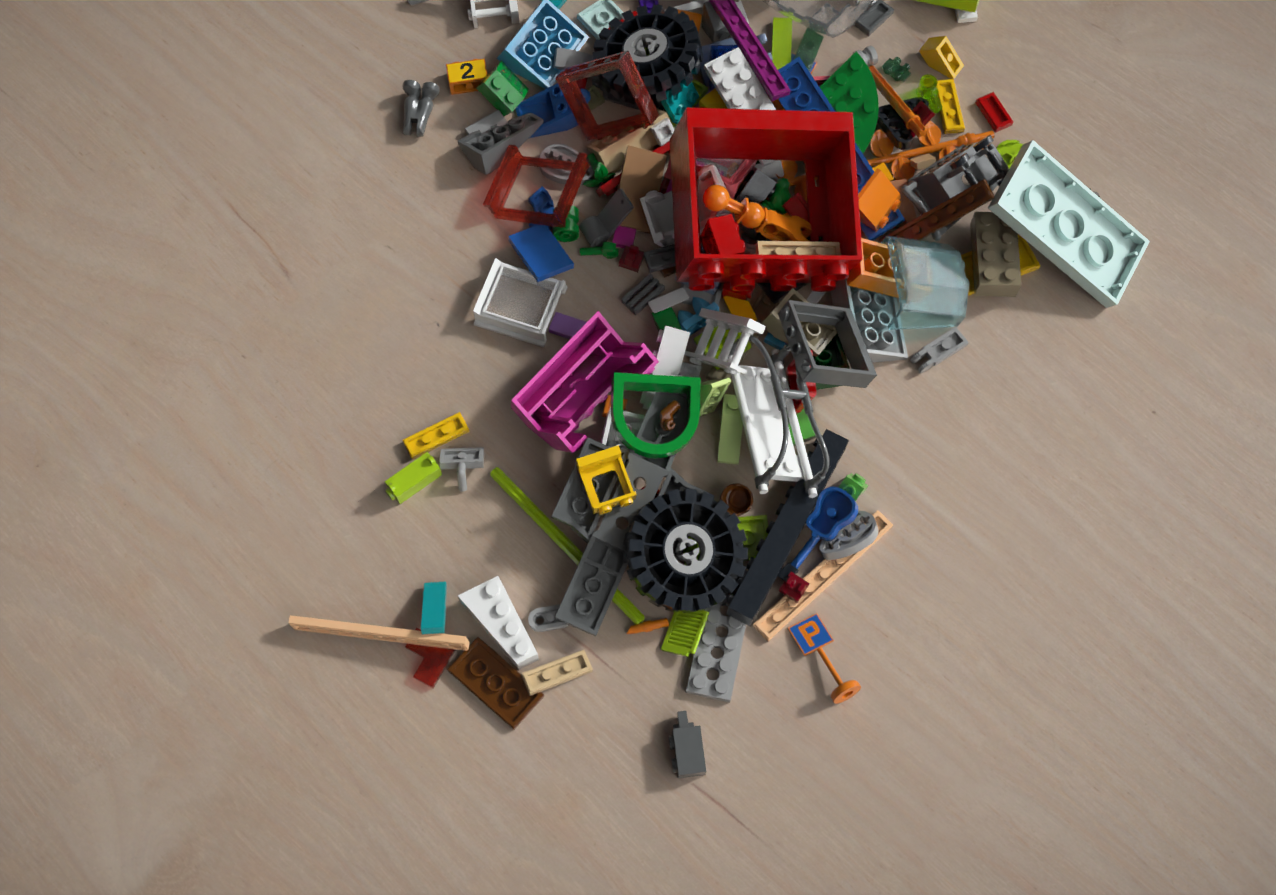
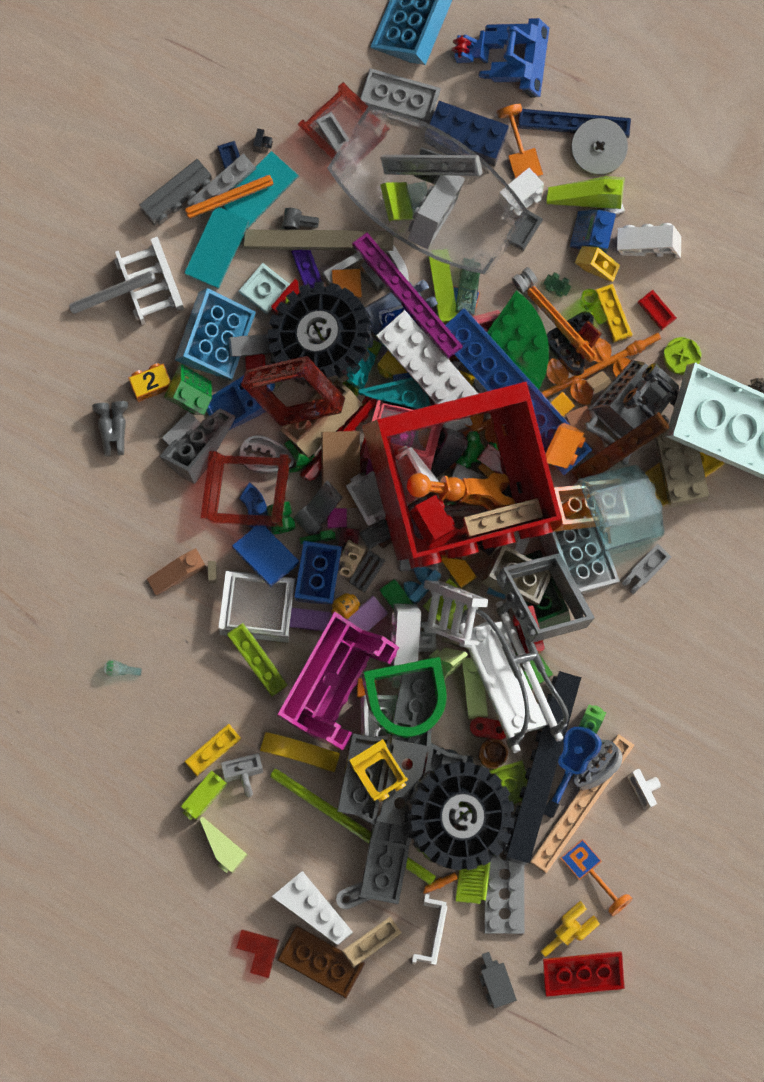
camera: 10 degrees left, 10 degrees up
(355, 332) = (116, 668): none -> clear light blue piece
(378, 633) = (211, 943): light nougat tile -> none
(420, 539) = (224, 849): none -> yellowish green slope
(434, 608) = (253, 910): teal tile -> none
(446, 253) = (177, 571): none -> nougat slope
(482, 260) = (212, 572): none -> dark tan tile
(505, 351) = (257, 659): none -> lime tile
(529, 455) = (300, 751): none -> yellow slope
(589, 281) = (317, 573): none -> blue slope
(616, 318) = (345, 605): none -> light orange head
(619, 699) = (432, 959): none -> white piece
(628, 274) = (350, 558): none -> tan hips
(636, 331) = (368, 614): none -> lavender slope
(662, 131) = (352, 408): white tile -> none
(666, 415) = (416, 696): reddish brown arm -> none
(668, 300) = (392, 574): white sticker -> none
(737, 474) = (488, 728): none -> red plate
(784, 706) = (571, 928): none -> yellow plant
(789, 760) = (583, 973): none -> red slope
(794, 587) = (558, 822): dark red tile -> none
(894, 572) = (644, 788): none -> white tile
(944, 22) = (593, 229): none -> blue slope
(999, 45) = (649, 239): none -> white wedge

